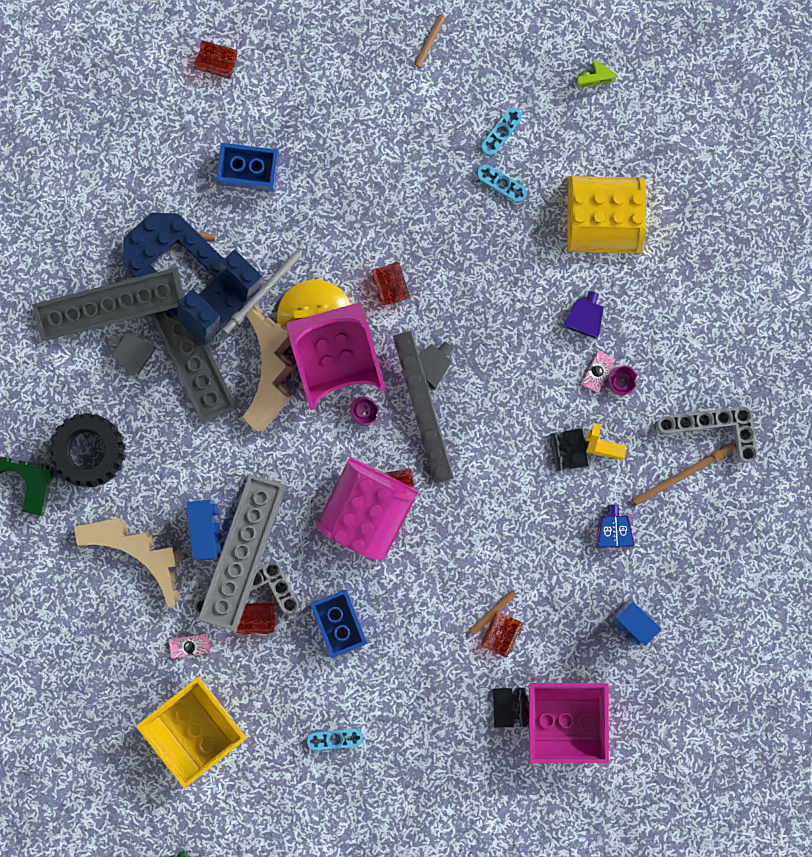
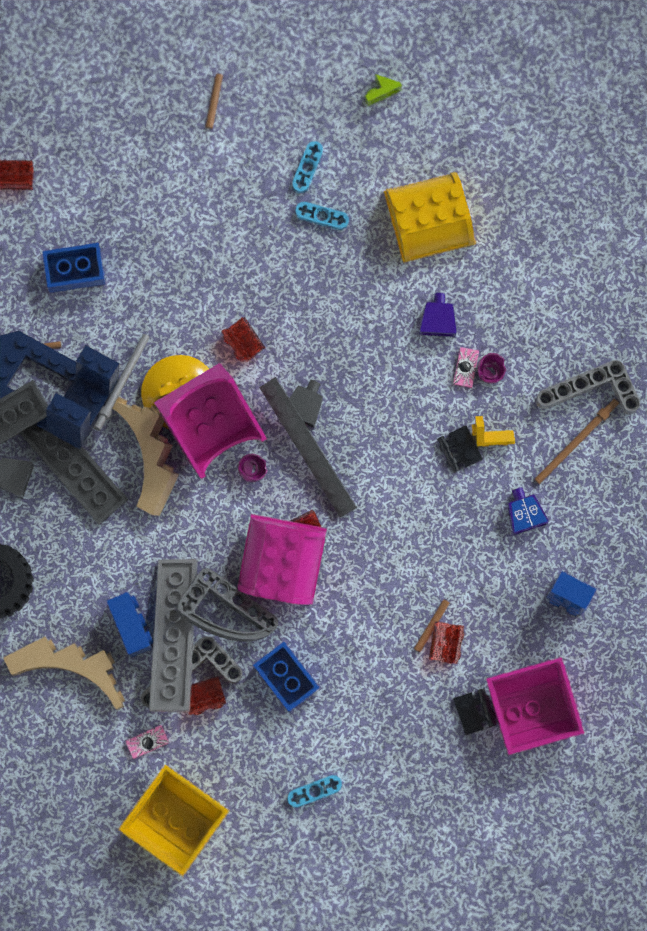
camera: 15 degrees left, 5 degrees down
(285, 514) = (227, 599): none -> dark grey beam

